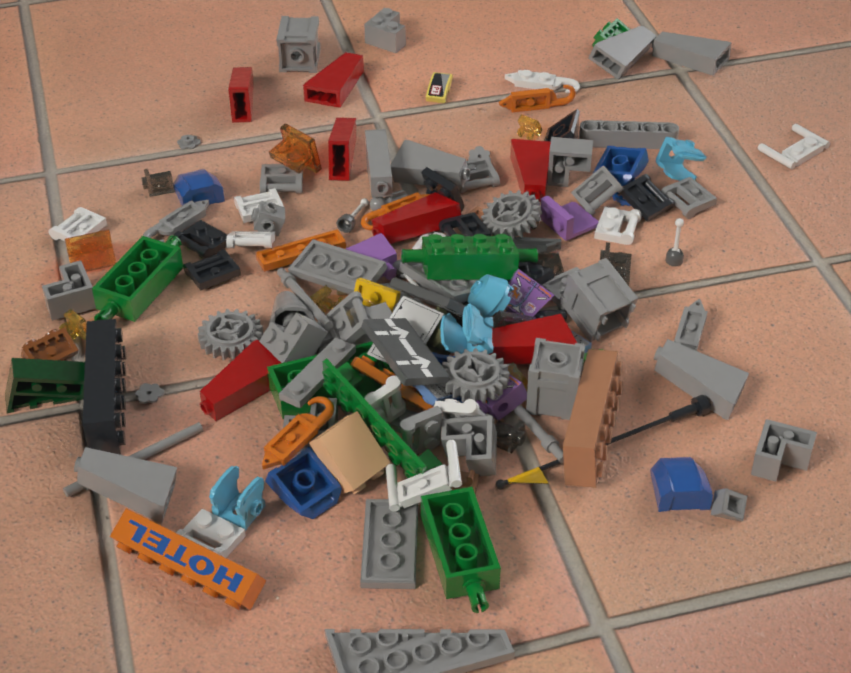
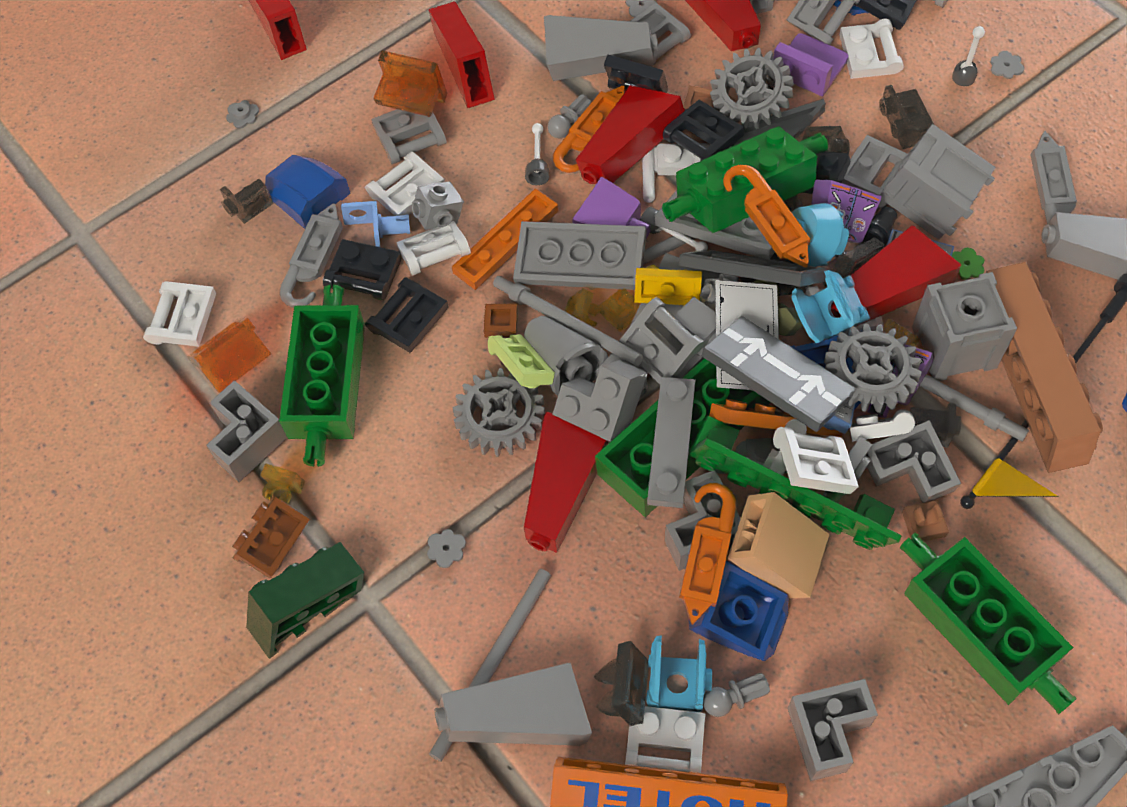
camera: 20 degrees left, 20 degrees up
(104, 386) = (395, 574): black brick -> none
(198, 495) = (629, 679): none -> clear smoke tile
(226, 218) = (382, 225): none -> light blue bracket
(258, 527) = (720, 701): none -> light grey axle
(259, 309) = (521, 360): none -> yellowish green plate
(266, 290) = (500, 320): none -> dark orange plate
(314, 554) = (822, 720): none -> light grey brick
(378, 163) = (534, 68): light grey slope -> none
(389, 546) = (891, 651): light grey tile -> none
(392, 400) = (816, 461): none -> white plate
(432, 481) = (900, 560): white plate -> none
(461, 271) = (772, 216): none -> orange plate
(707, 261) = (1006, 65): none -> light grey plant

